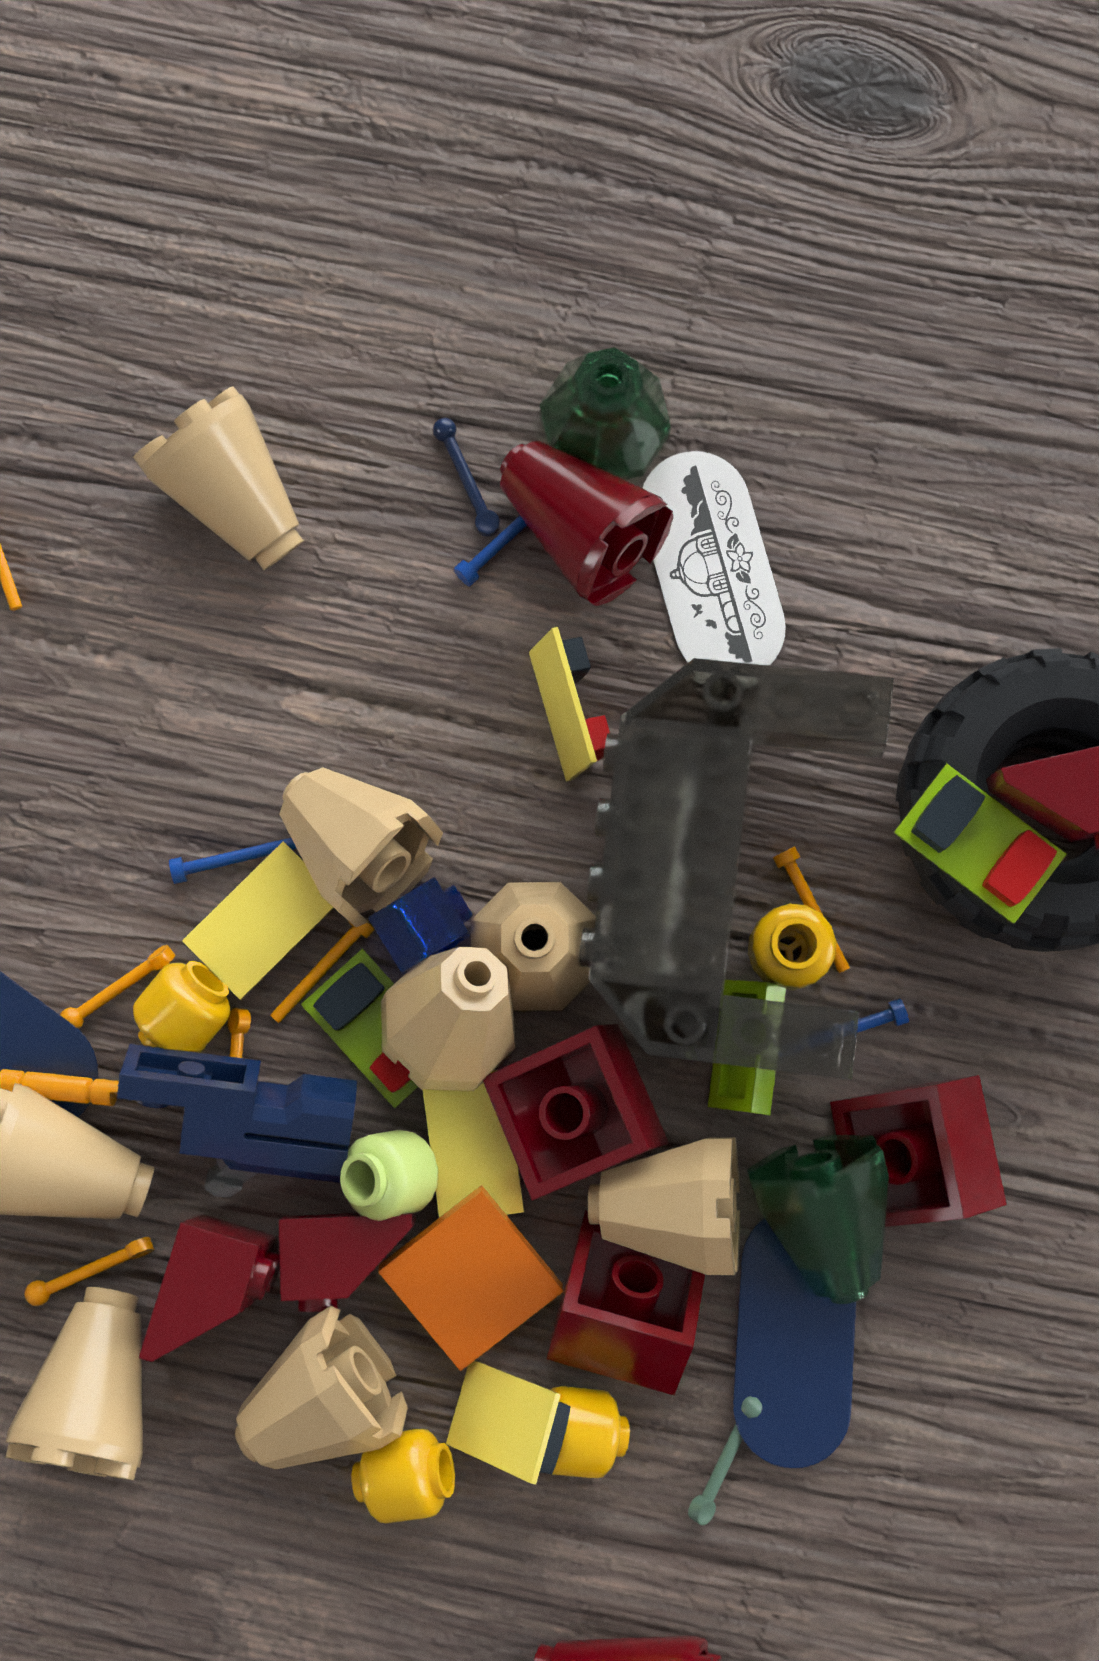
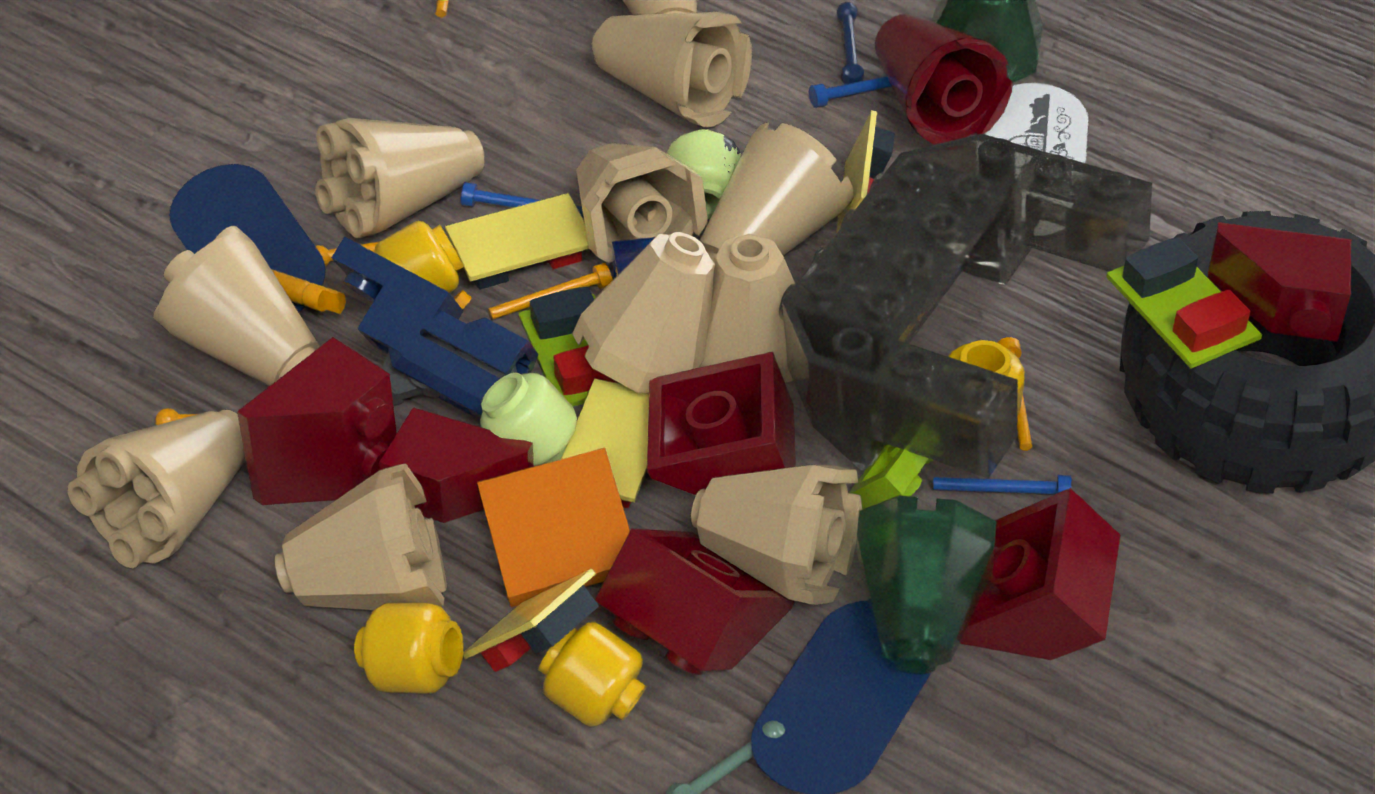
camera: 25 degrees right, 35 degrees down
(99, 897) = (390, 170): none -> tan cone
(307, 612) = (678, 60): none -> tan cone
(407, 757) = (711, 157): none -> yellowish green head
(495, 796) = (779, 191): none -> tan cone

